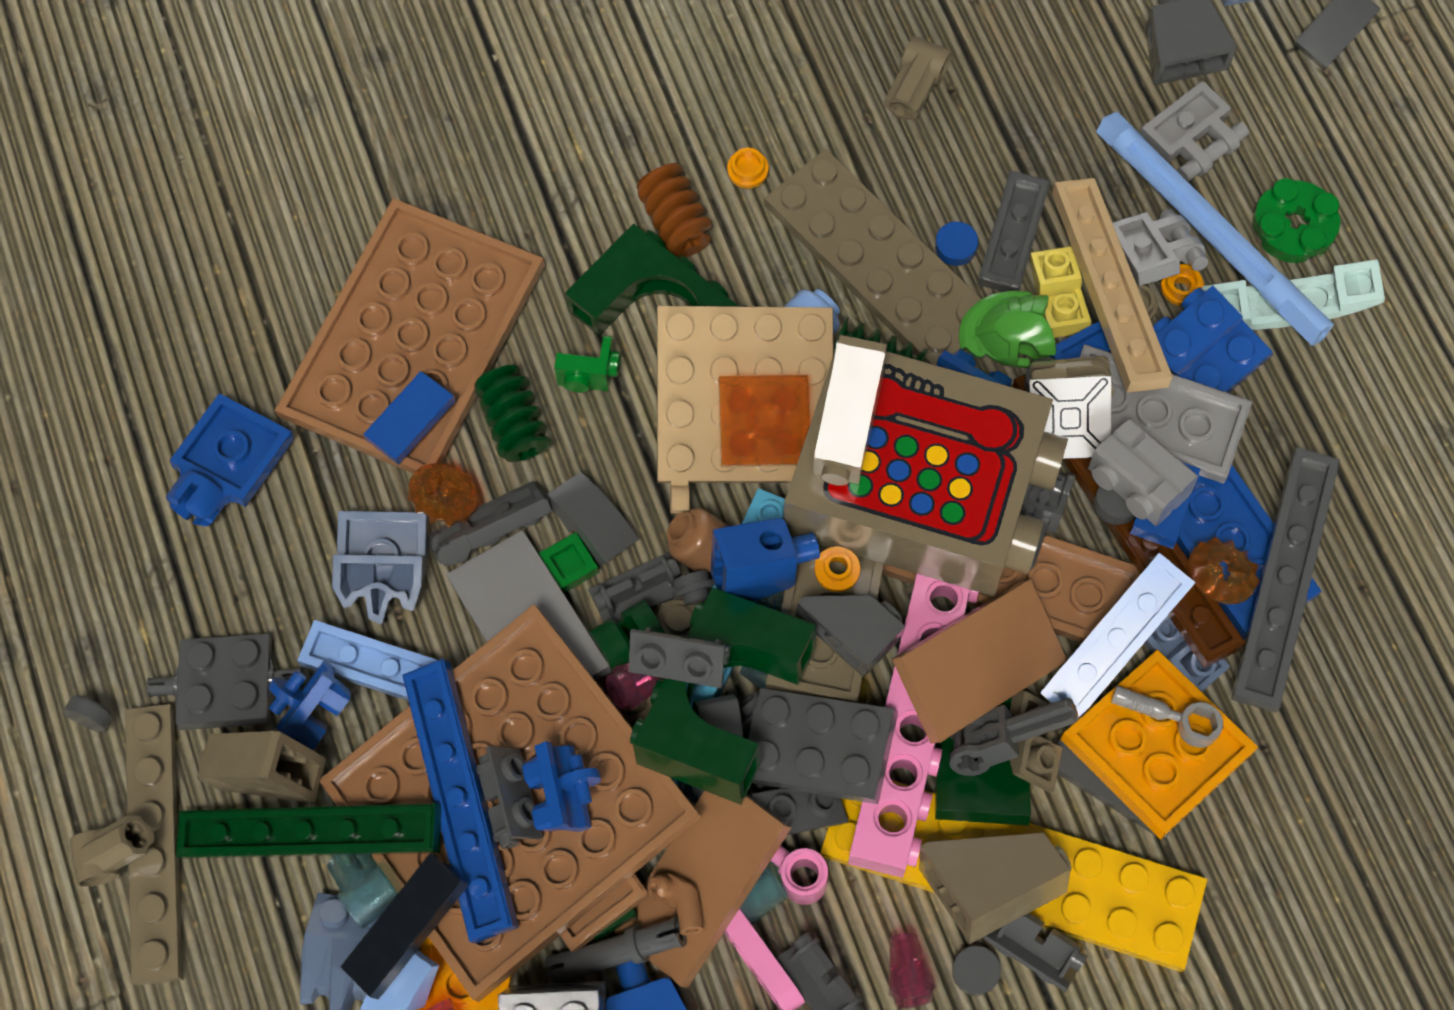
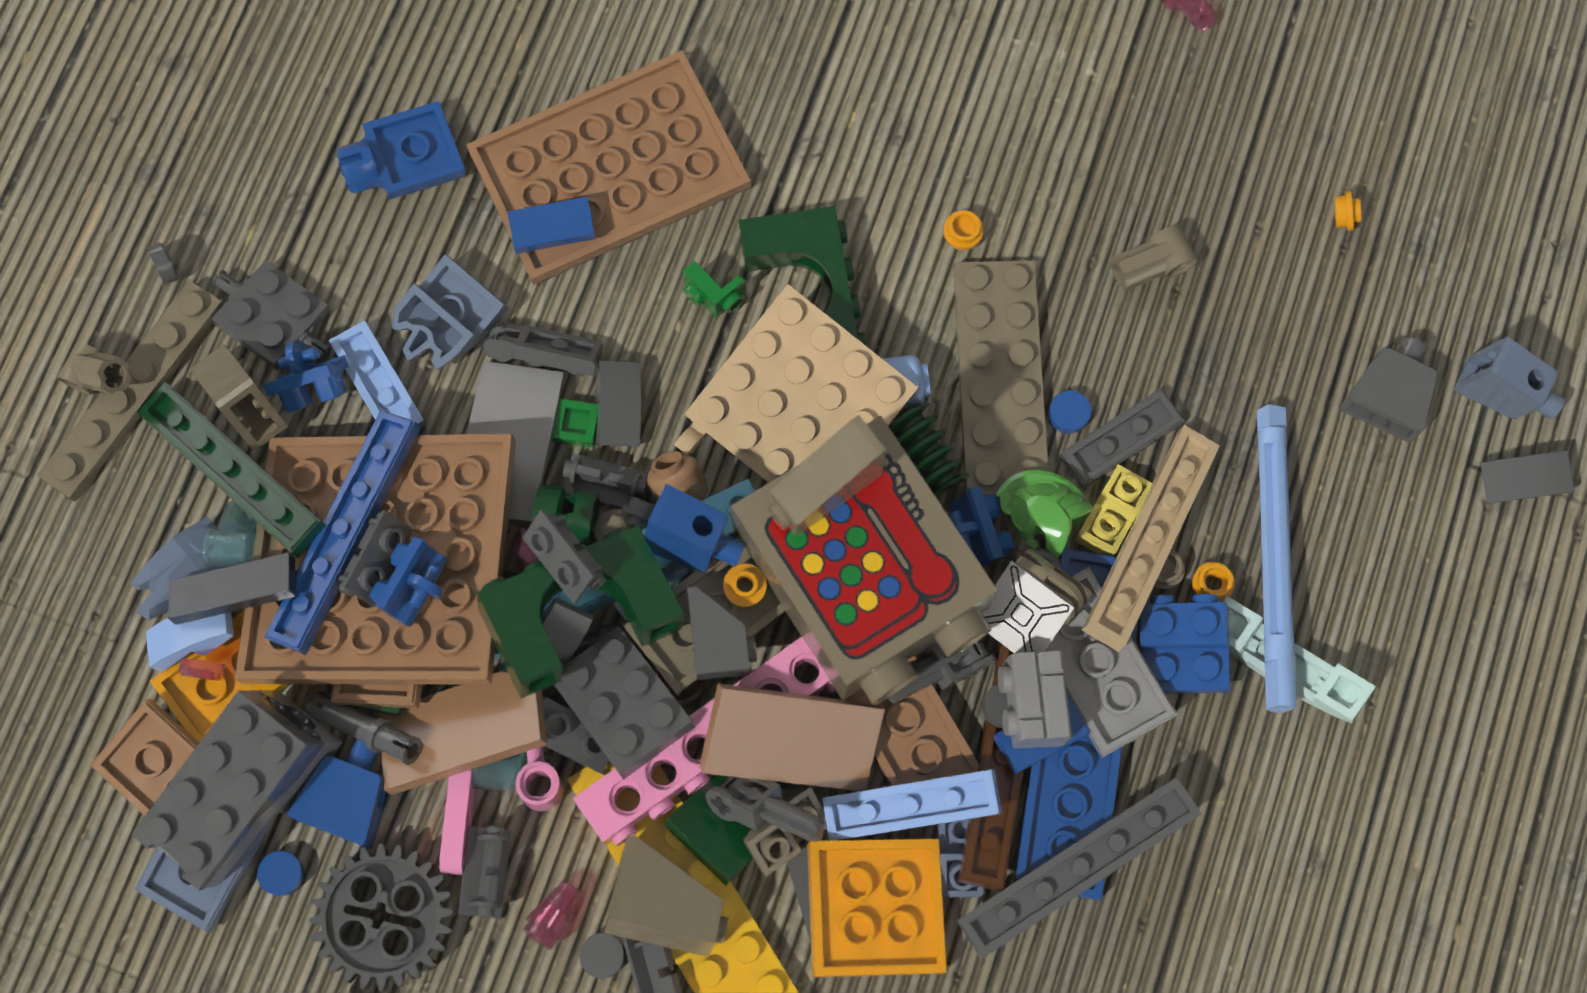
camera: 35 degrees right, 5 degrees up
(452, 483) = (543, 299): clear orange gear -> none
(510, 414) = (625, 280): dark green piece -> none
(675, 210) = (876, 220): dark orange piece -> none
(681, 897) = (434, 729): medium nougat arm -> none
(762, 419) = (787, 427): clear orange plate -> none
(1149, 252) = (1205, 532): light grey plate -> none
(1160, 710) = (896, 886): light grey piece -> none
(1187, 121) = (1333, 458): light grey plate -> none
(1209, 575) = (1019, 816): clear orange gear -> none
(1302, 199) = (1358, 581): green plate -> none

